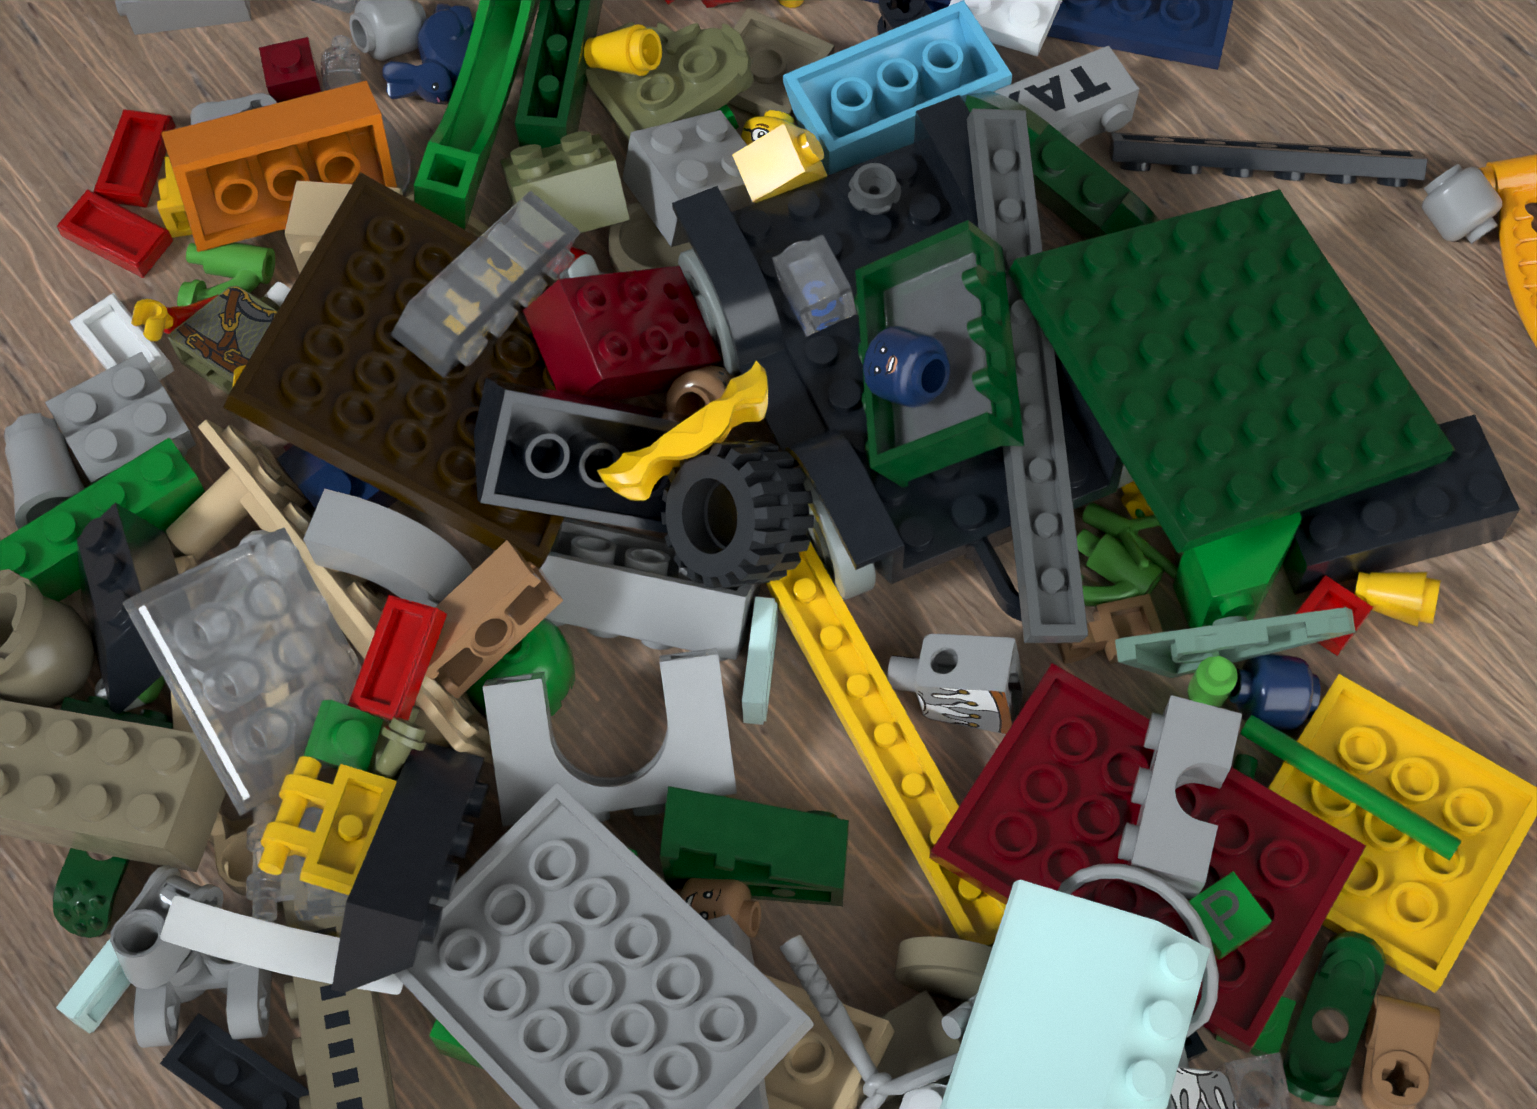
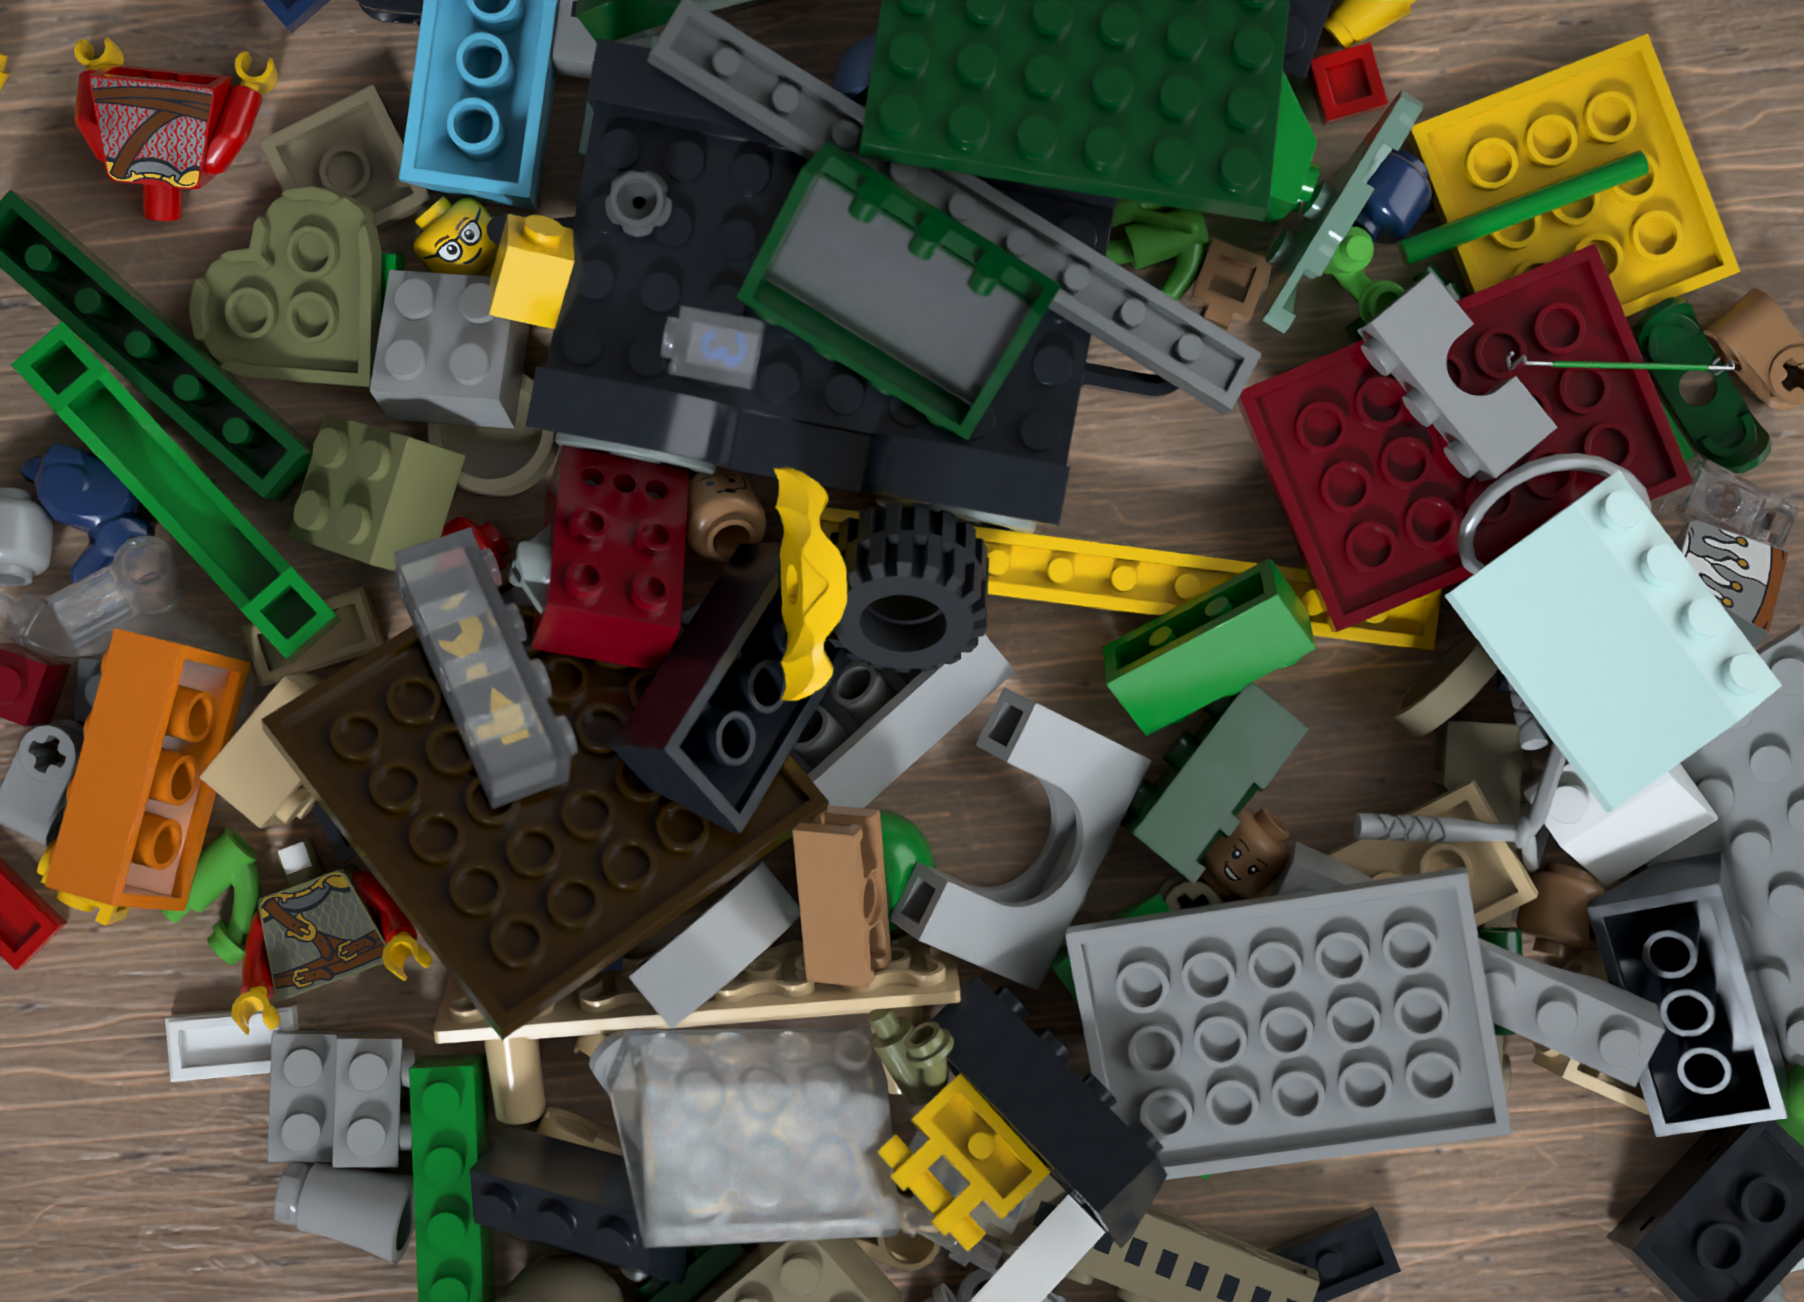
camera: 60 degrees left, 25 degrees up
(115, 233) = (83, 975): red tile -> none
(343, 736) = (877, 1096): green plate -> none
(397, 659) = (839, 1003): red tile -> none
(407, 101) = (118, 591): none -> clear piece
(627, 50) = (244, 320): yellow cone -> none
(760, 661) = (1032, 649): light aqua tile -> none
(850, 772) = (1208, 647): none -> green brick
(906, 366) = (901, 337): dark blue head -> none
(964, 680) = (1200, 457): light grey torso -> none
(1229, 914) = (1581, 418): green tile -> none
(1361, 1022) = (1624, 365): none -> green piece

